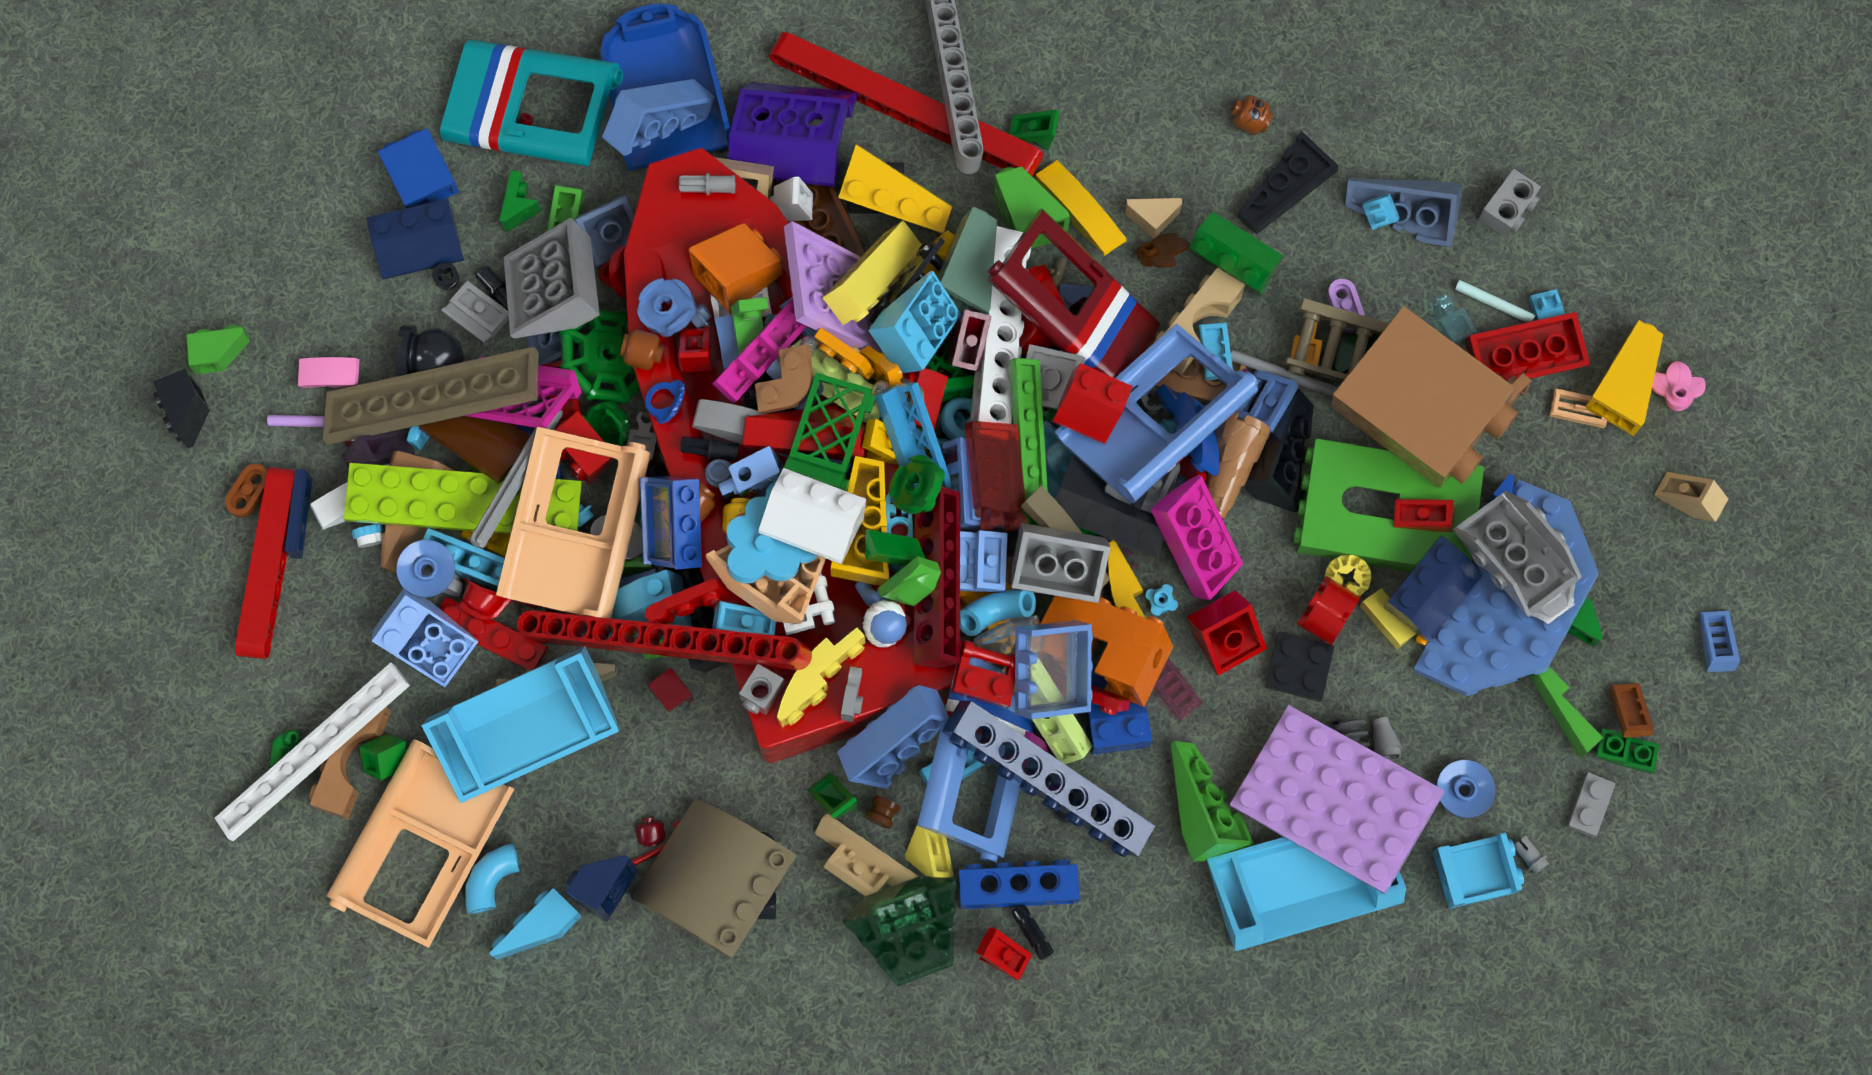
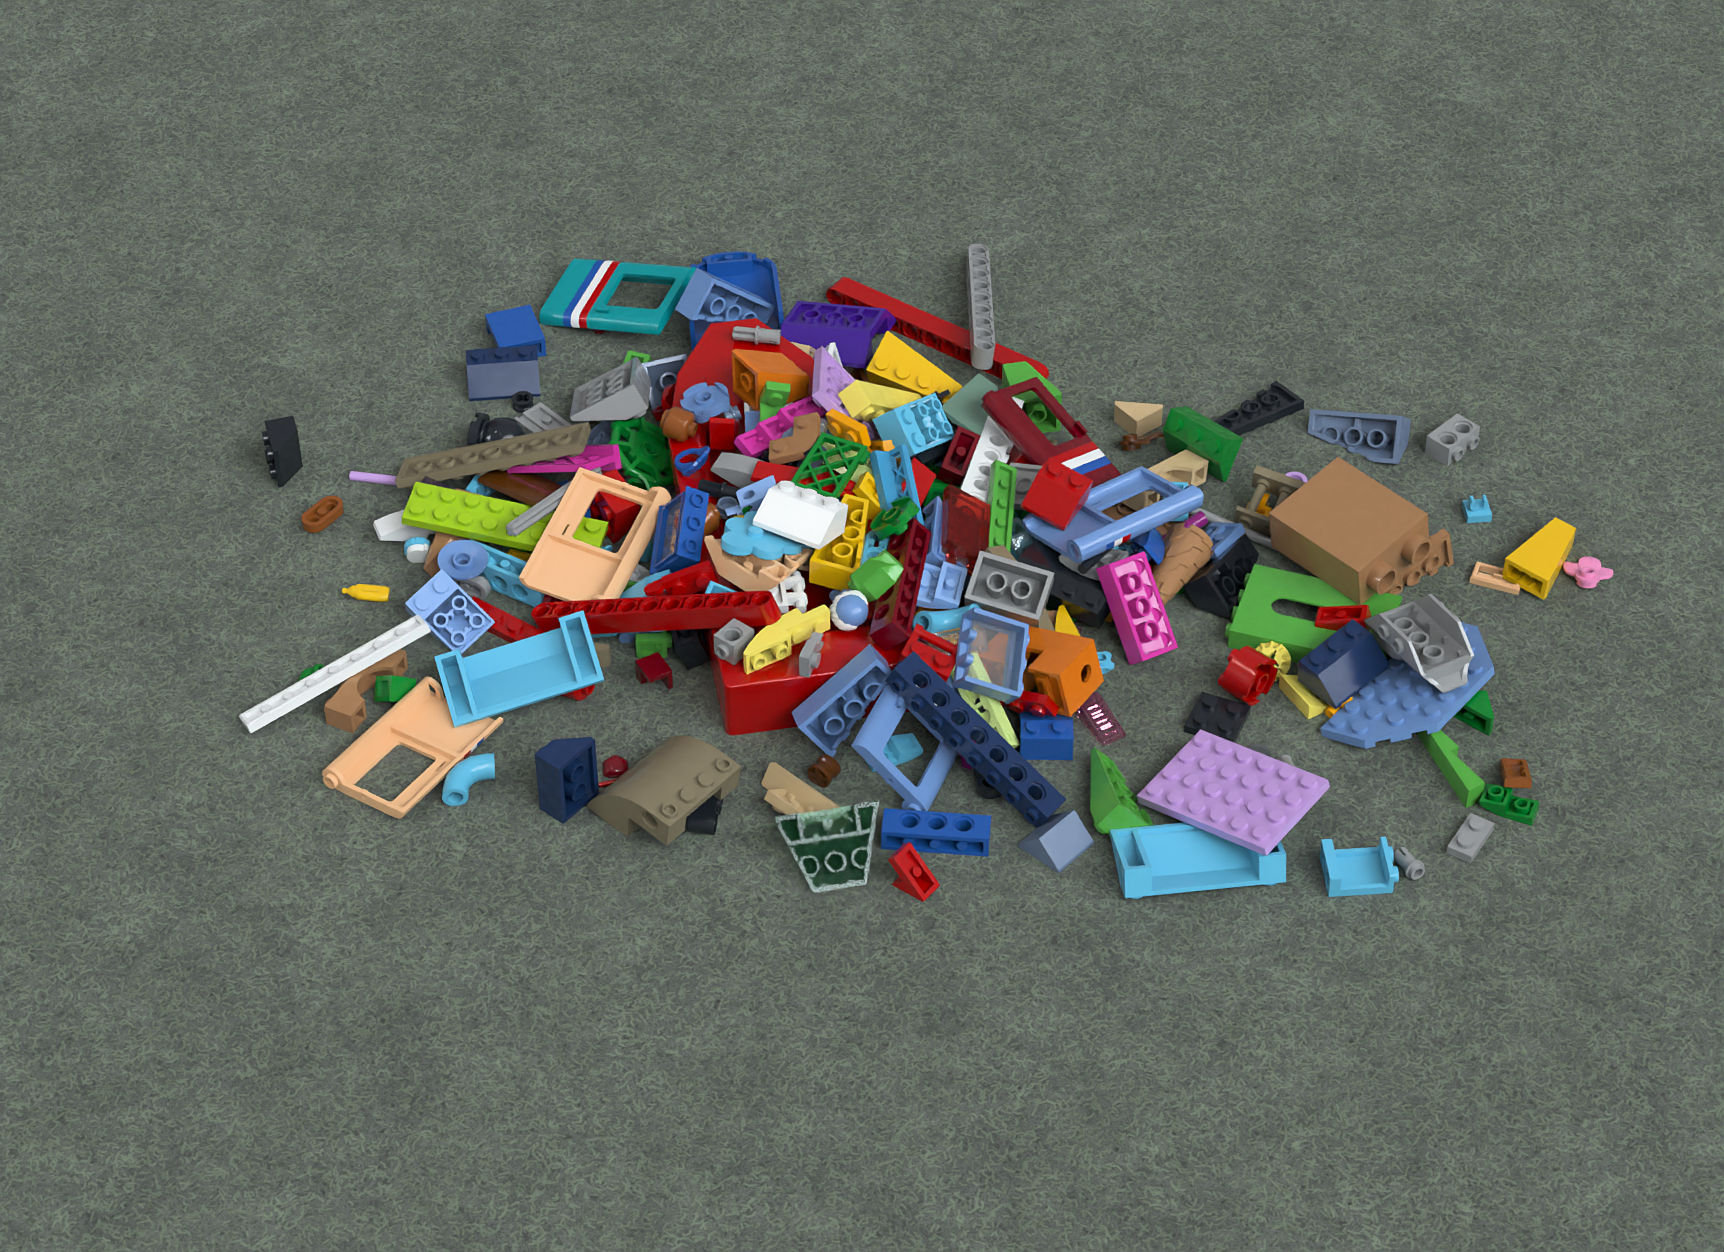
camera: 10 degrees right, 30 degrees down
(215, 350) = (319, 424): bright green slope -> none
(266, 567) = (327, 559): red beam -> none
(298, 514) = (361, 531): dark blue tile -> none
(325, 604) = (368, 592): none -> yellow piece
(328, 371) = (408, 446): bright pink slope -> none
(482, 602) = (511, 595): red piece -> none
(493, 285) = (558, 406): black axle -> none
(516, 207) = (593, 361): green slope -> none
(543, 924) = (503, 813): medium azure slope -> none
(833, 796) = (787, 756): green slope -> none
(891, 548) = (857, 548): green slope -> none
(929, 853) = (860, 792): light yellow slope -> none
(1032, 932) = (943, 868): black axle -> none
(1035, 127) = (1048, 353): green slope -> none
(1083, 209) = (1081, 409): yellow slope -> none
(1150, 876) = (1058, 840): none -> sand blue slope
(1227, 632) = (1155, 686): red slope -> none
(1251, 115) = (1233, 365): dark orange head -> none
(1380, 211) = (1337, 433): medium azure tile -> none
(1476, 779) = (1355, 810): medium blue dish -> none
(1494, 302) = (1431, 504): light aqua bar -> none
(1532, 347) = (1471, 530): red slope -> none
(1692, 495) = (1592, 639): tan slope -> none
(1719, 659) = (1604, 745): medium blue slope -> none

